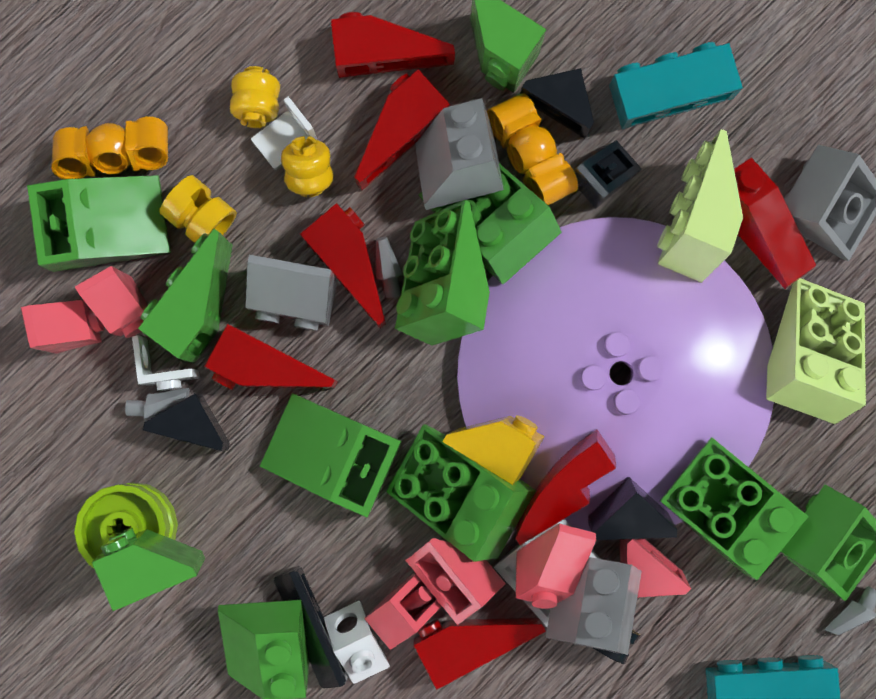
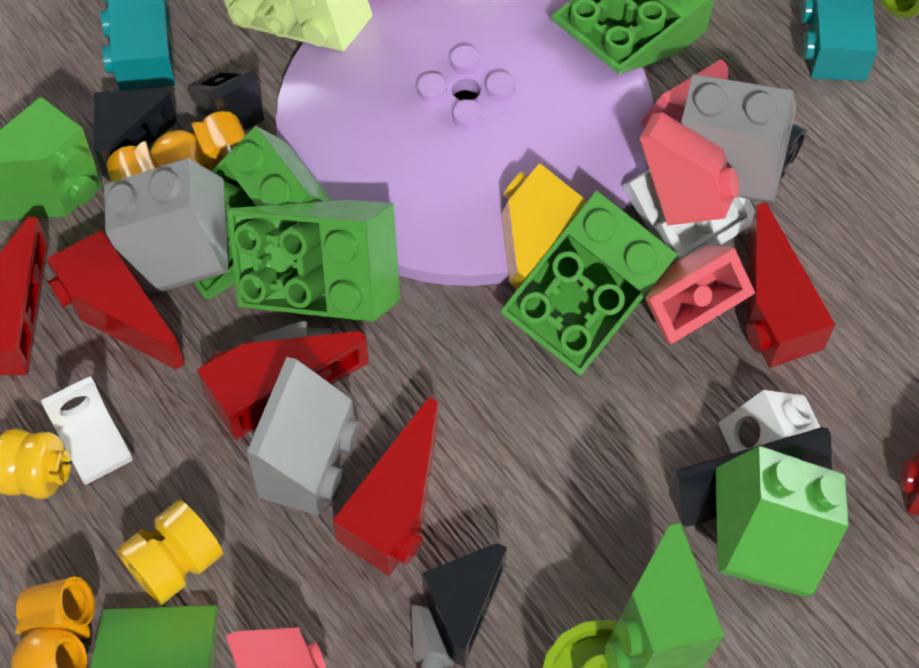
camera: 80 degrees left, 25 degrees down
(164, 380) = (381, 651): white bracket -> none
(192, 306) = (297, 558): bright green slope -> none
(307, 166) = (139, 406): yellow piece -> none
(330, 455) = (526, 419): bright green slope -> none
(403, 611) = (732, 357): coral slope -> none
(566, 486) = (593, 156): red slope -> none
(630, 515) = (629, 100): black slope -> none

